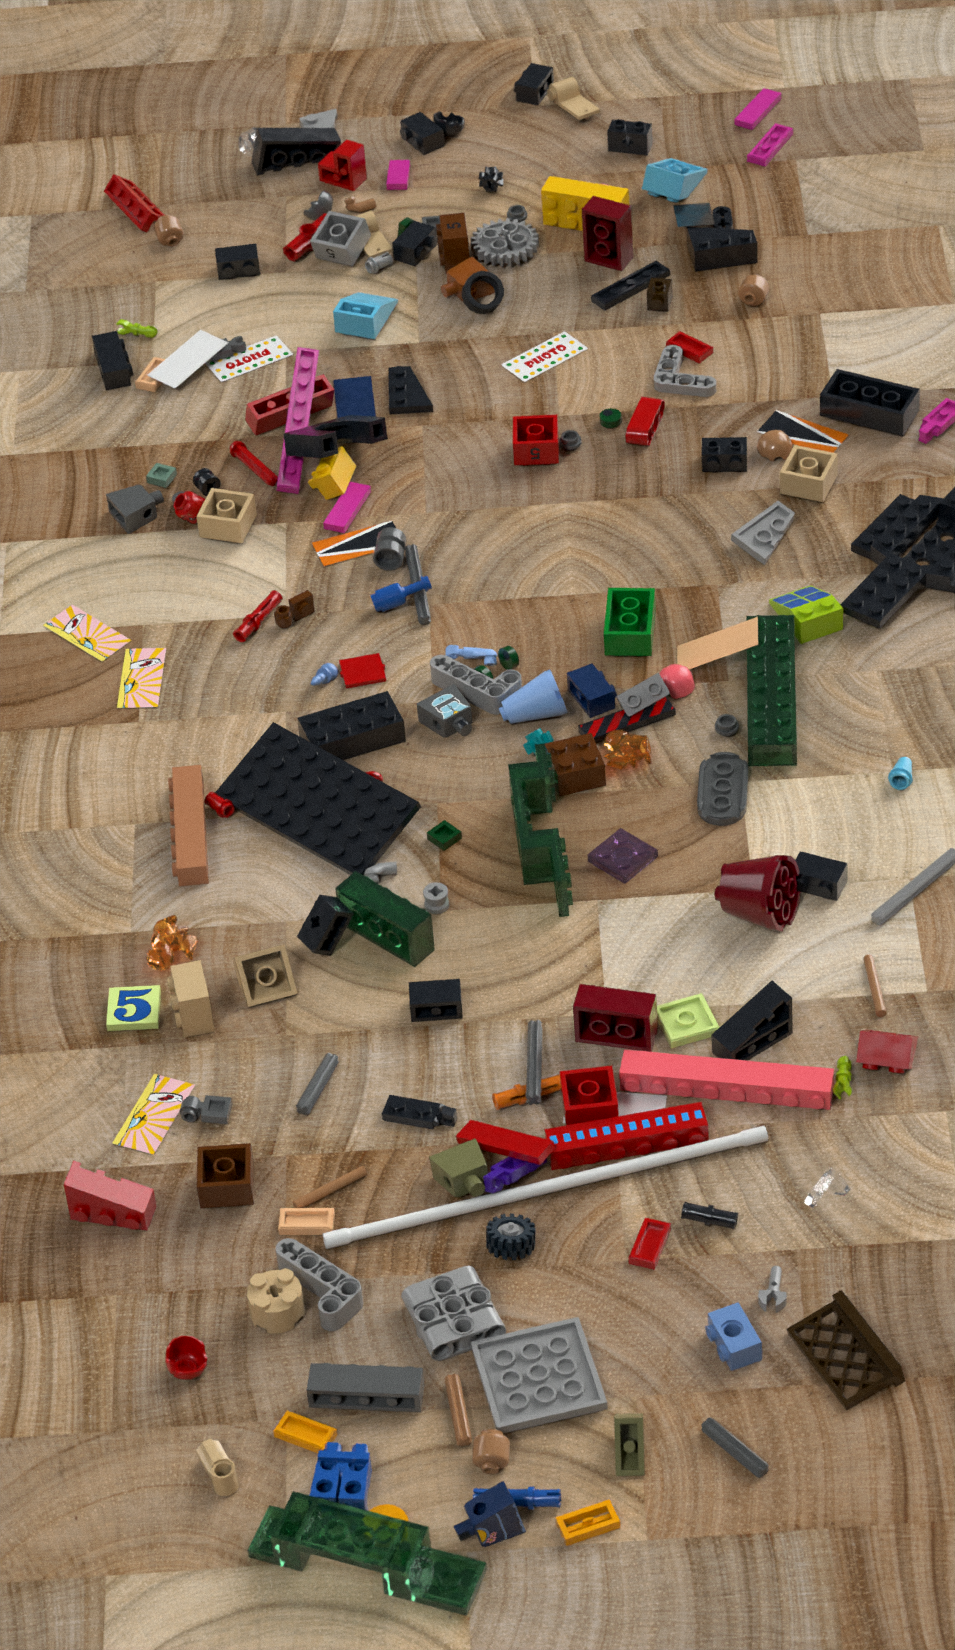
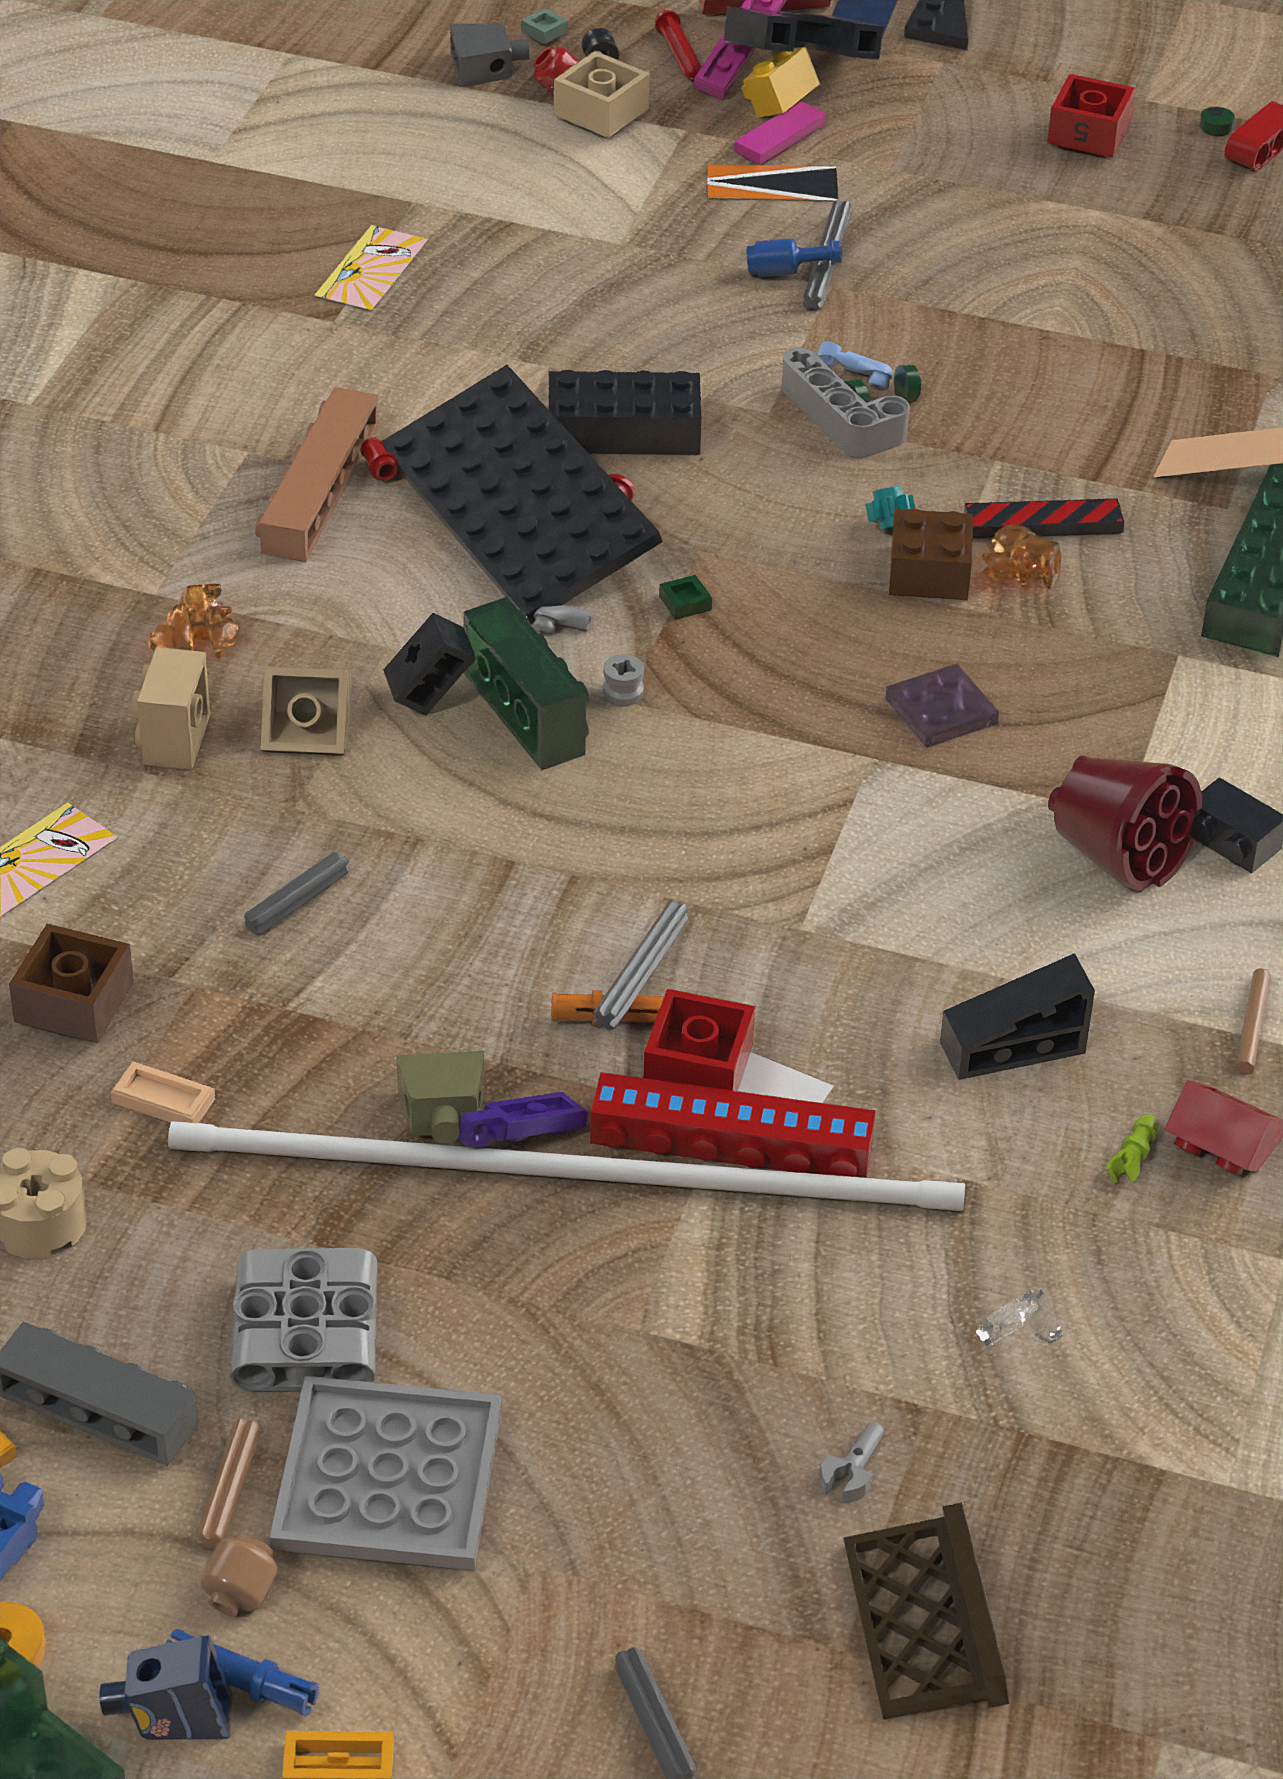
camera: 15 degrees right, 0 degrees up
(87, 632) = (330, 191): sticker -> none
(133, 1008) = (90, 699): yellowish green tile -> none
(213, 1109) = (117, 881): dark grey plate -> none
(253, 621) = (564, 237): red pin -> none
(298, 608) = (639, 237): reddish brown plate -> none
(325, 674) = (628, 333): medium blue bar -> none
(330, 1187) = (227, 1056): medium nougat bar -> none
(338, 1290) = (145, 1222): light grey beam -> none
(362, 670) = (688, 344): red piece -> none
(389, 549) = (808, 196): dark grey wheel -> none
(418, 1112) = (425, 985): black hinge -> none
(435, 1000) = (541, 825): black brick -> none
(446, 712) = (775, 430): dark grey torso -> none
(506, 1142) = (533, 1074): red tile -> none
(510, 1236) = (461, 1226): black wheel -> none
(534, 701) = (914, 449): light blue cone -> none
(539, 849) = (810, 656): clear green bracket -> none
(544, 356) = (1160, 23): white sticker -> none
(570, 440) = (1143, 132): dark grey plate -> none
(591, 690) = (1009, 461): dark blue brick -> none
(615, 1017) = (802, 936): dark red brick -> none
(629, 622) = (1110, 383): green brick -> none
(629, 1444) = (475, 1645): olive slope -> none
(643, 695) = (1080, 485): light grey bracket -> none
(649, 1243) = (686, 1314): red tile -> none
(678, 680) = (1144, 485): coral hair -> none
(686, 1020) = (919, 978): yellowish green tile -> none
(709, 1215) = (805, 1300): black pin -> none
(722, 789) = (1144, 656): dark grey tile -> none
(726, 725) = (1193, 567): dark grey plate -> none
(727, 1079) = (941, 1091): coral brick -> none
(734, 1337) = (748, 1546): medium blue brick -> none

